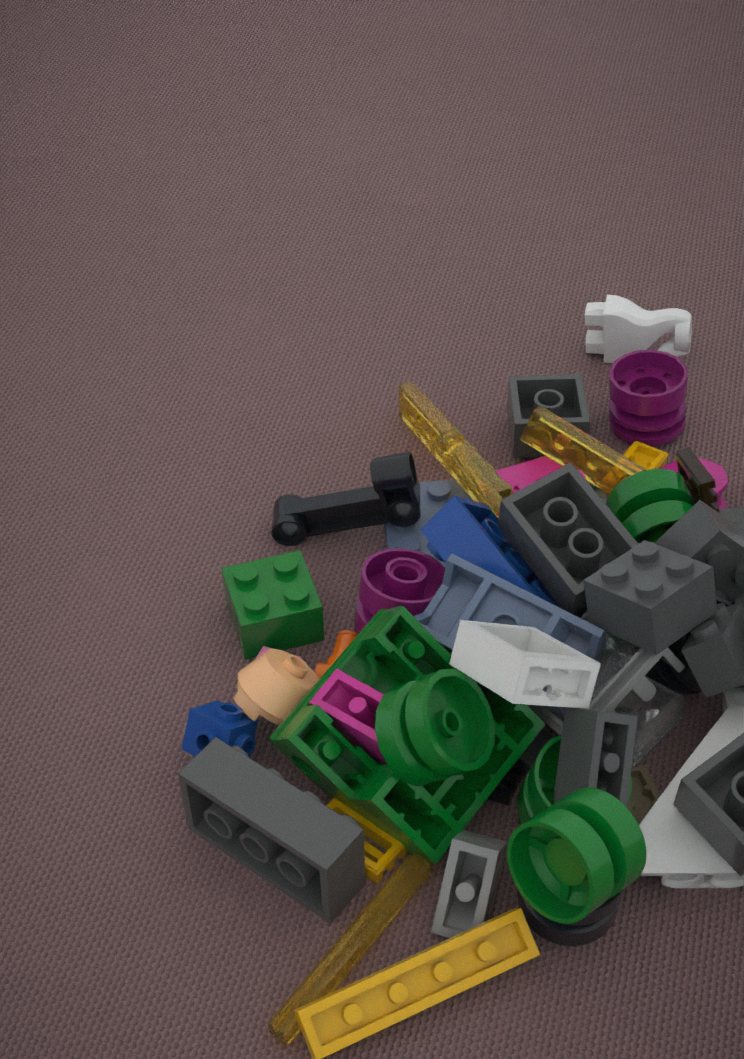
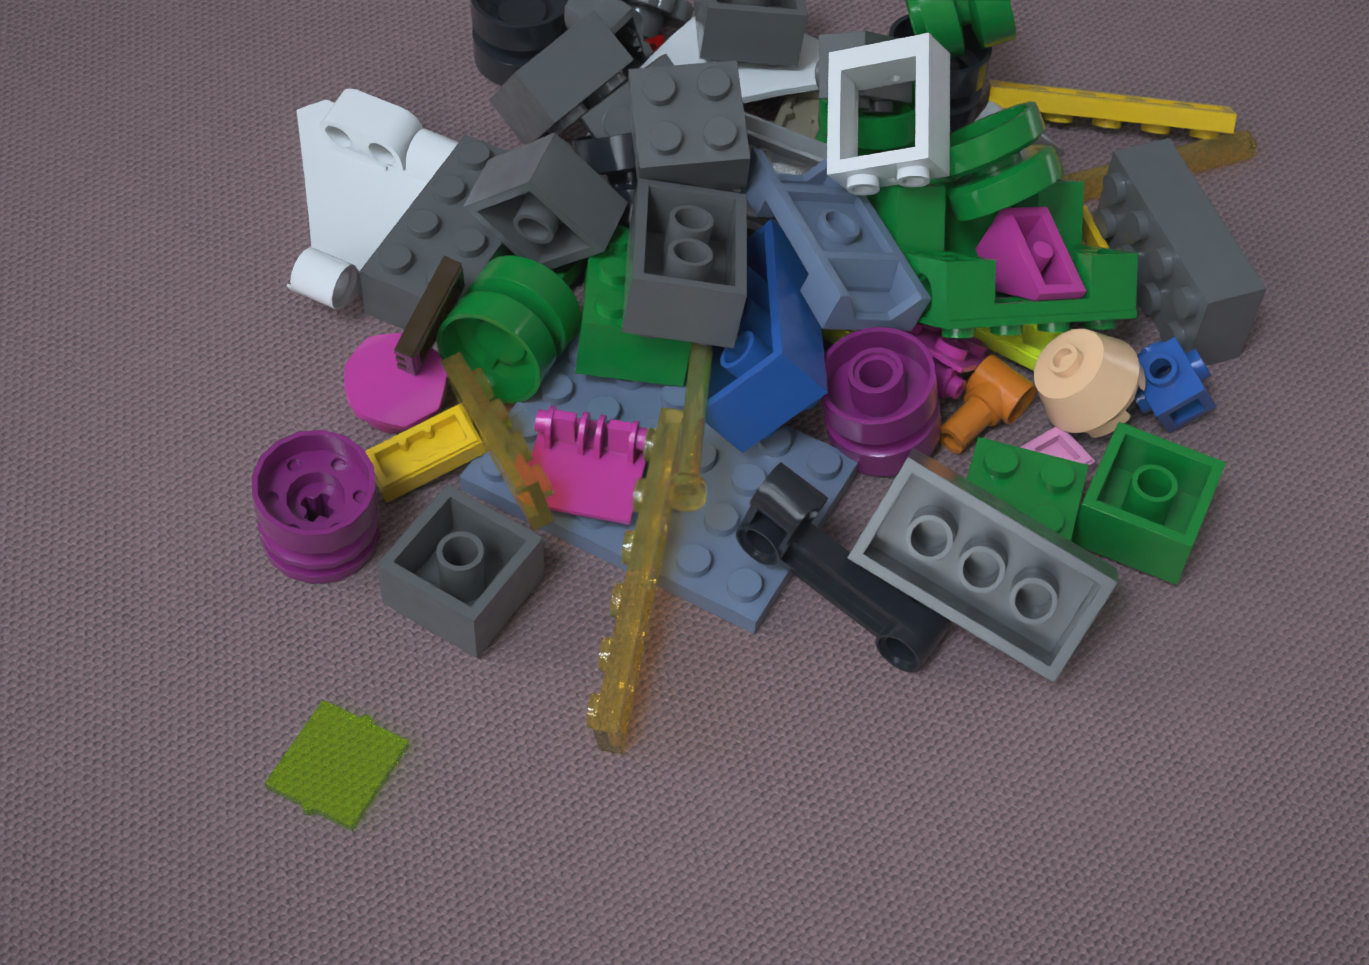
camera: 150 degrees left, 10 degrees up
(191, 643) = (1147, 502): none -> green brick
(263, 524) = (984, 565): none -> dark grey brick
(525, 348) = (337, 765): none -> clear neon green piece
(634, 328) = (206, 633): white hips -> none

